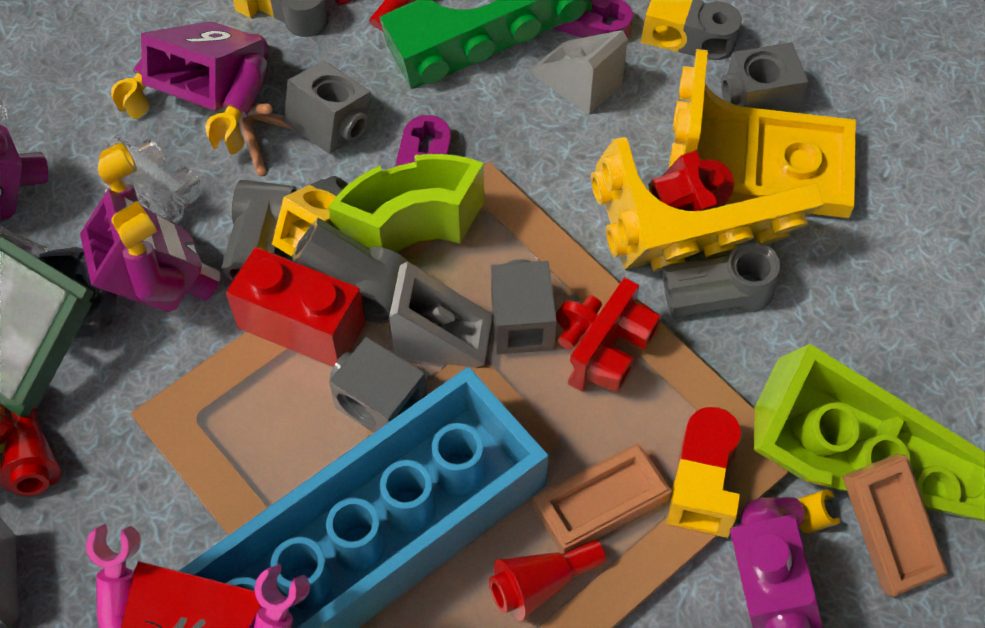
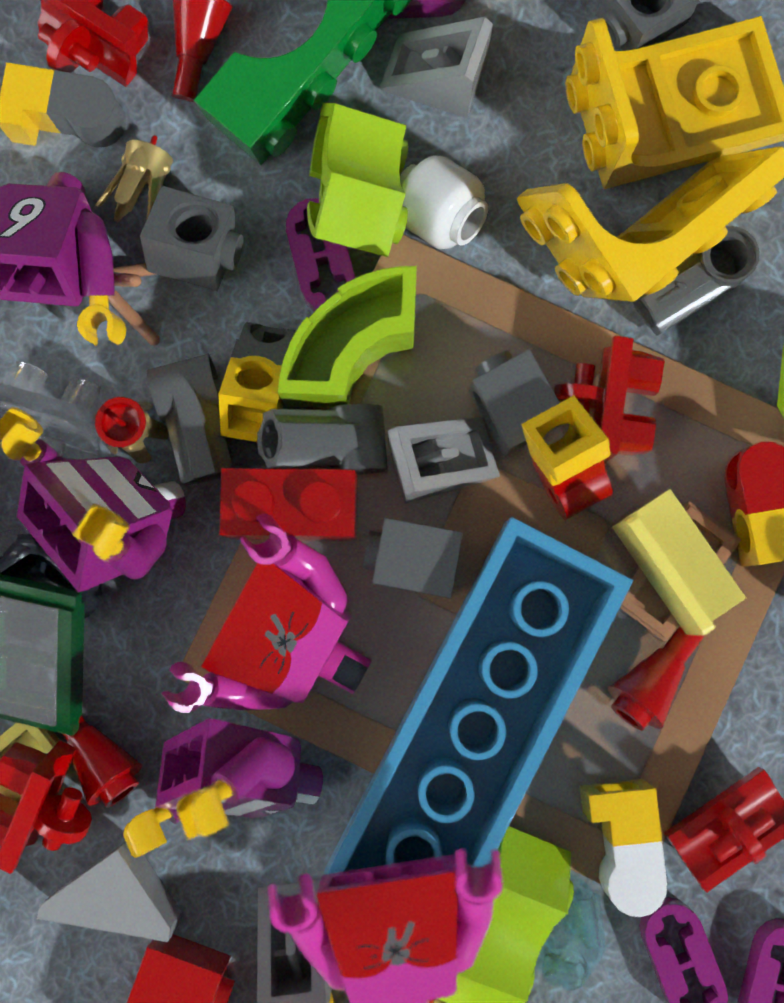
camera: 20 degrees left, 25 degrees up
(119, 484) = (219, 773): none -> magenta torso
(201, 205) = (126, 424): none -> red piece
(232, 397) = (276, 634): none -> torso
(317, 49) = (141, 165): none -> pearl gold piece
(476, 107) = (360, 180): none -> lime brick
(535, 153) = (443, 202): none -> white head
(543, 356) = (574, 465): none -> yellow leg
(602, 478) = (679, 563): none -> light yellow panel
(694, 184) = (636, 195): red hips -> none

